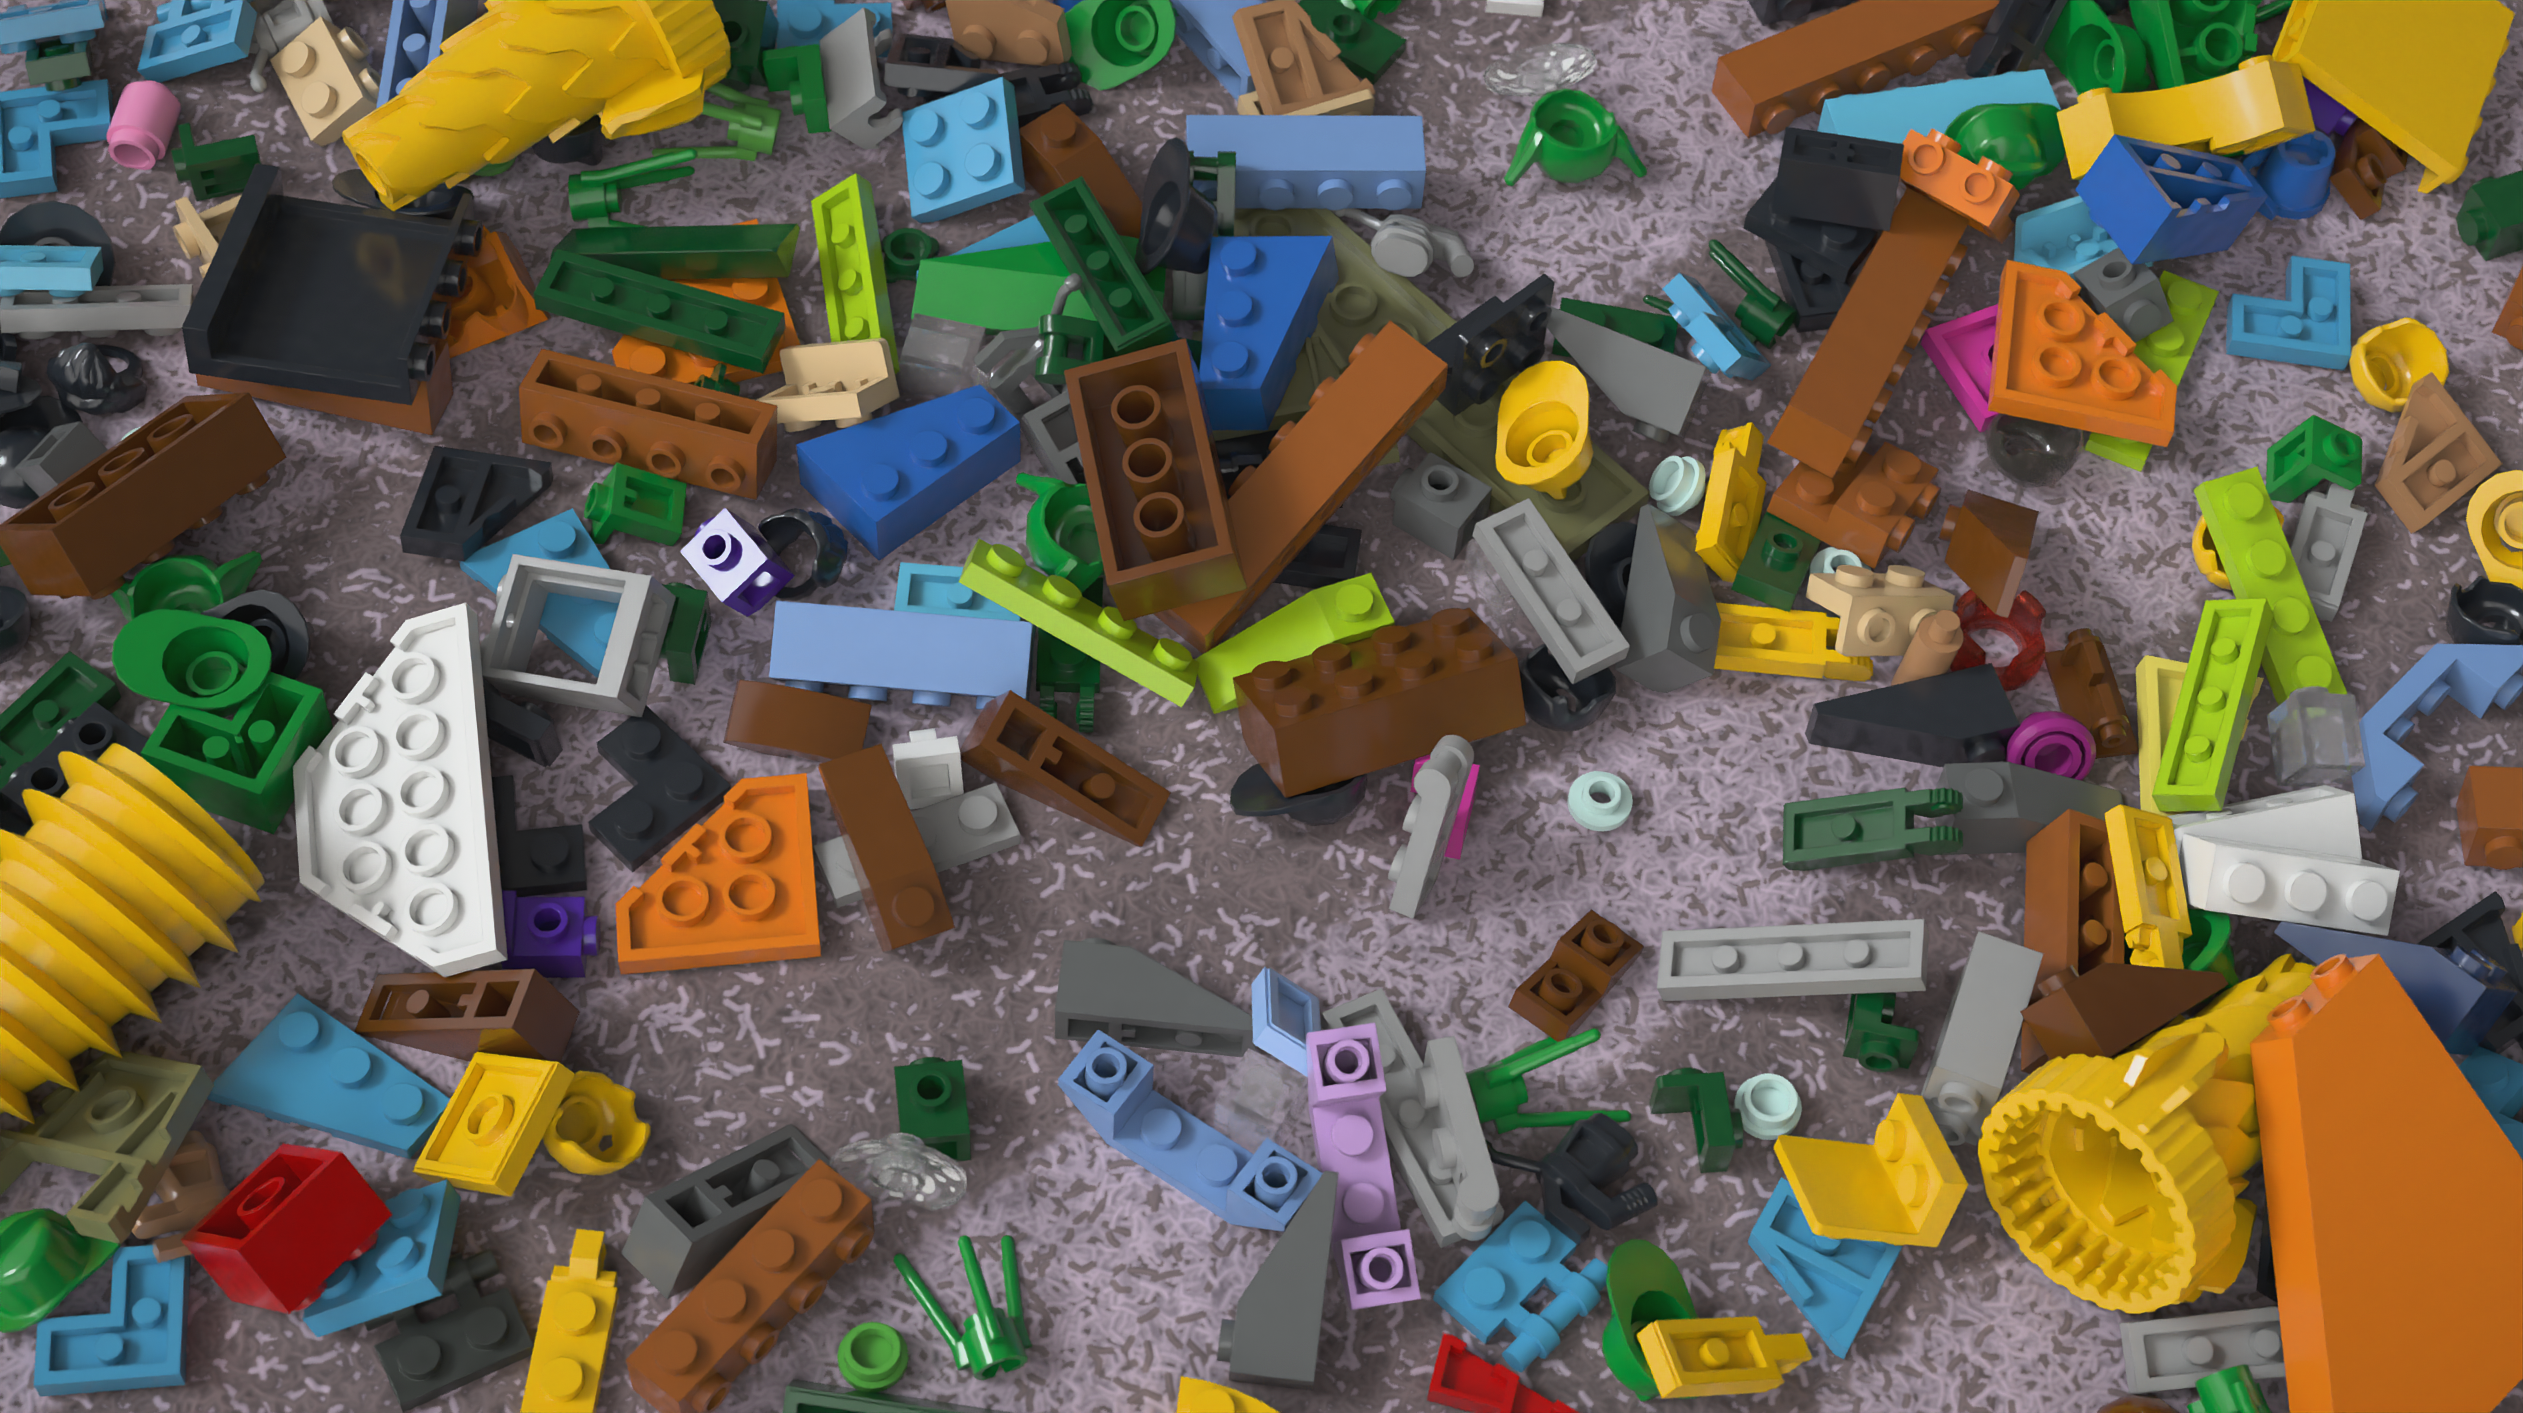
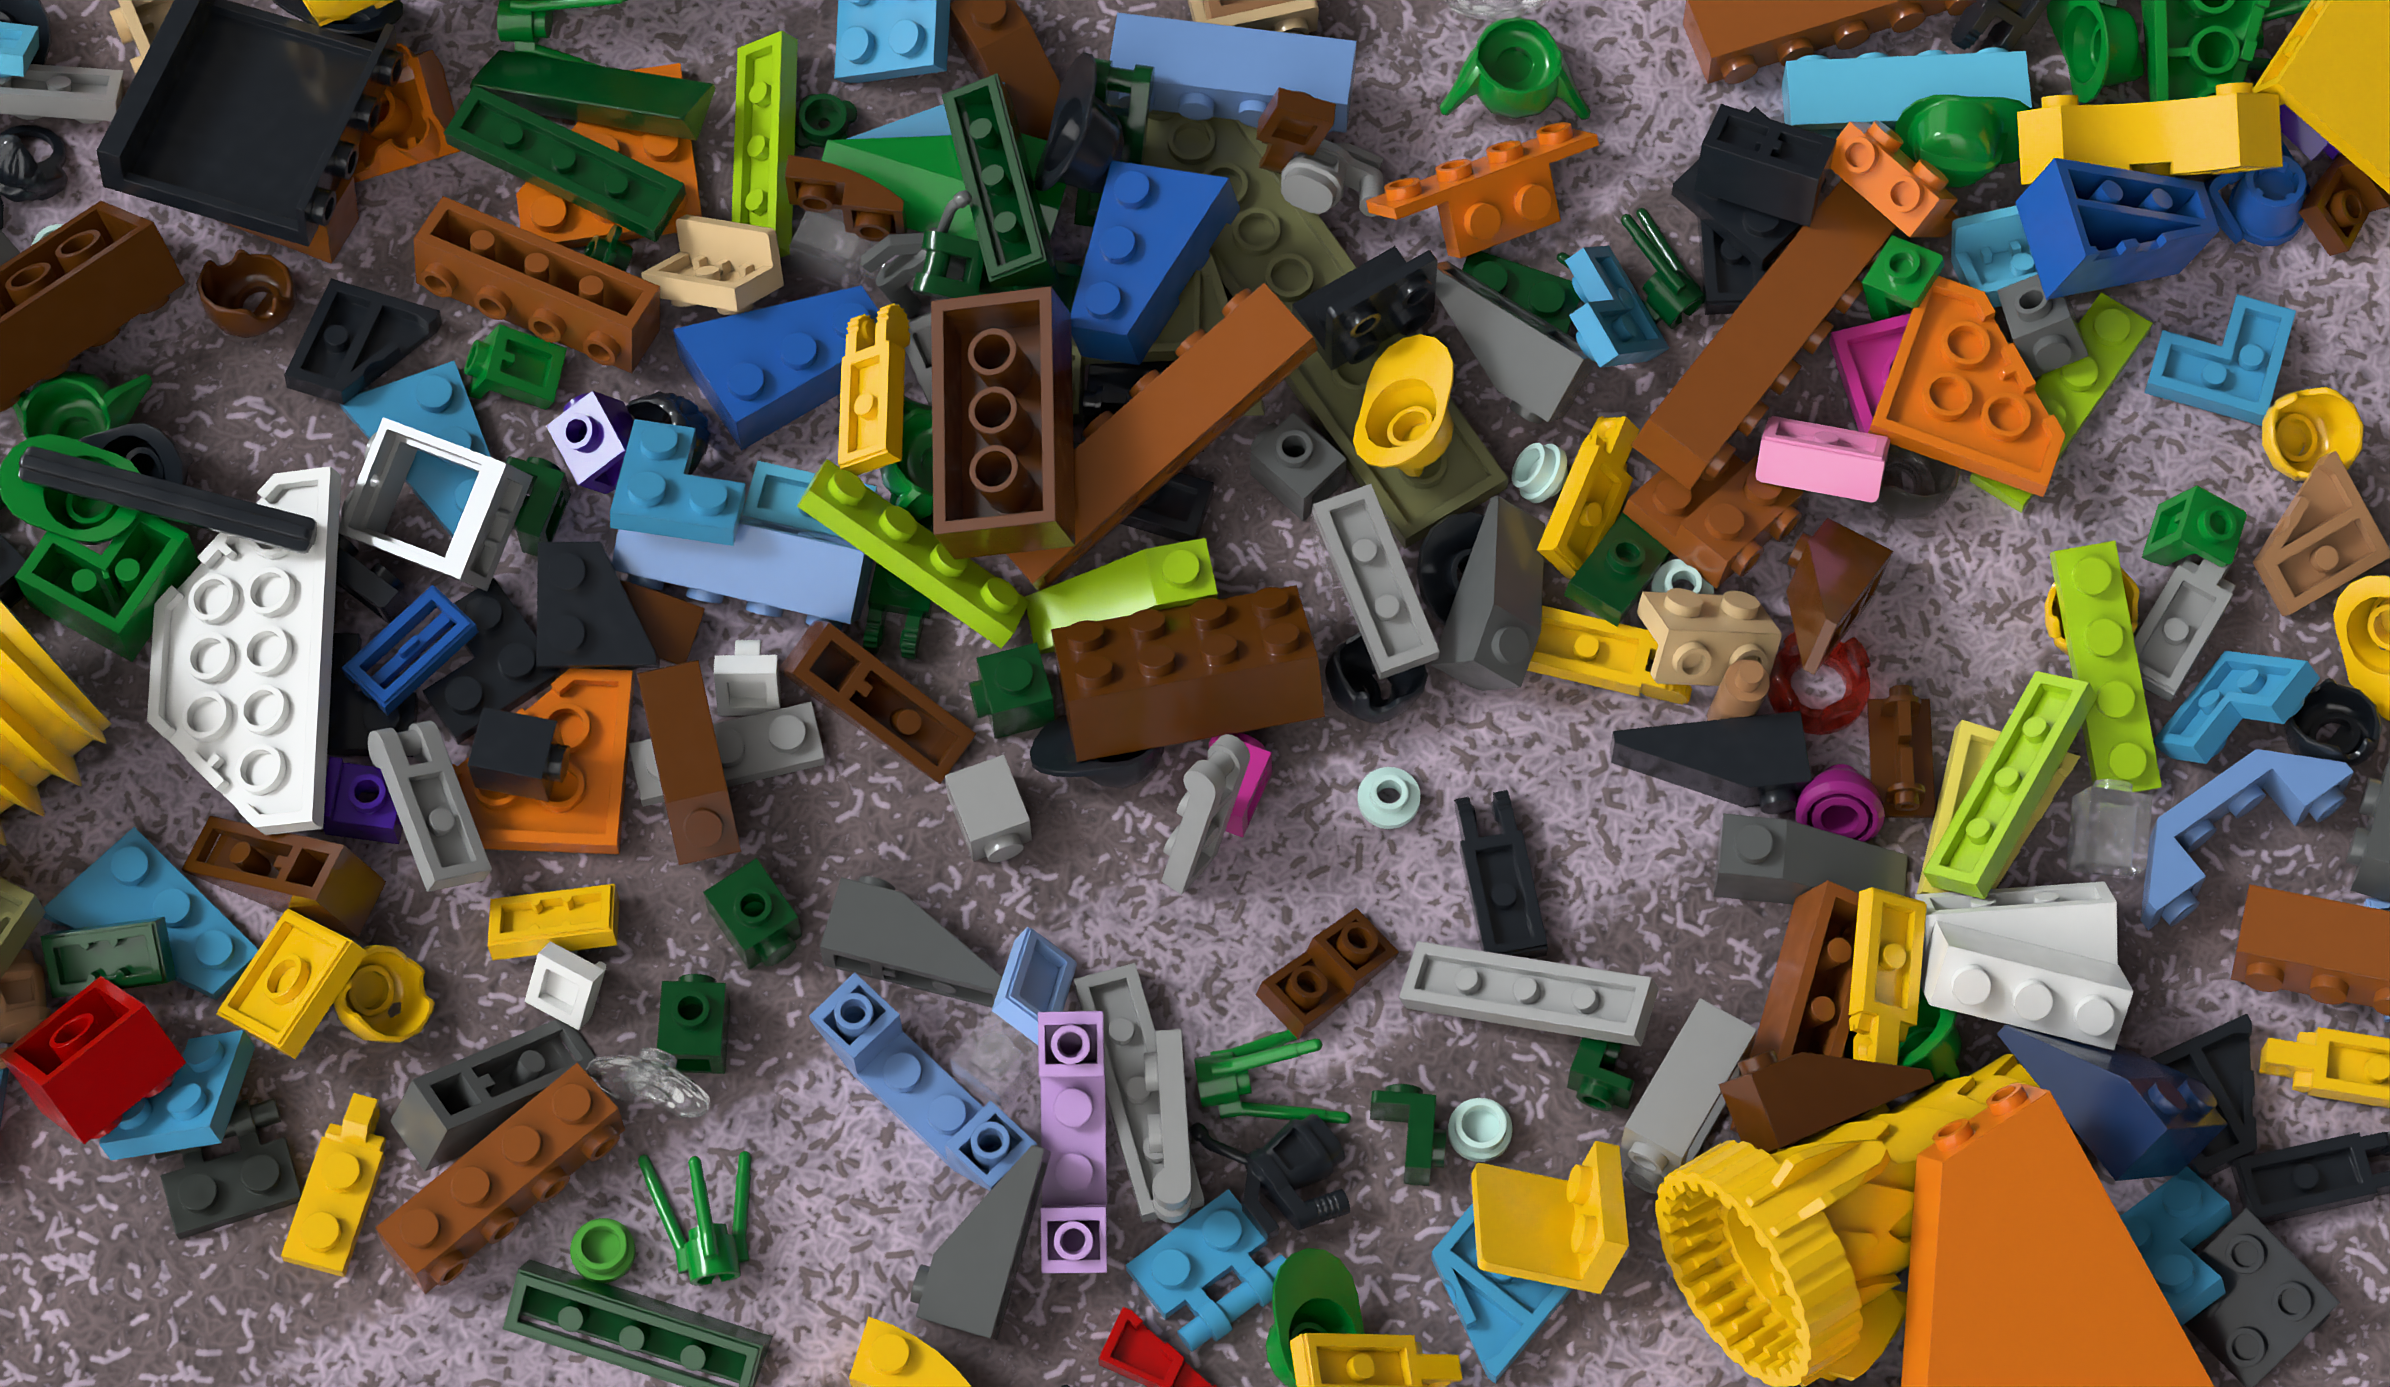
camera: 15 degrees right, 10 degrees up
(297, 652) = (167, 499): none -> black axle
(308, 1115) = (122, 952): none -> dark green plate
(331, 467) = (229, 285): none -> reddish brown hair
(587, 796) = (426, 665): none -> blue tile
(618, 924) = (430, 805): none -> light grey plate
(705, 860) = (518, 754): none -> black brick
(751, 719) = (586, 612): none -> black wing
(764, 1029) = (566, 917): none -> yellow plate
(787, 1089) = (565, 985): none -> white tile
(814, 594) = (661, 497): none -> dark azure plate
(937, 295) = (866, 205): none -> reddish brown slope
(976, 994) = (754, 915): none -> dark green brick
(1015, 470) = (873, 391): none -> yellow hinge
(1200, 860) = (989, 810): none -> light grey brick
(1203, 743) = (1013, 691): none -> dark green brick
(1377, 192) = (1292, 124): none -> reddish brown plate
(1578, 247) = (1492, 196): none -> orange bracket
(1729, 860) = (1500, 882): none -> black hinge
(1868, 828) = (1634, 866): dark green hinge -> none
(1955, 433) = (1822, 459): none -> bright pink slope
(1981, 271) = (1900, 278): none -> green bracket
(2396, 596) = (2233, 690): none -> dark azure plate

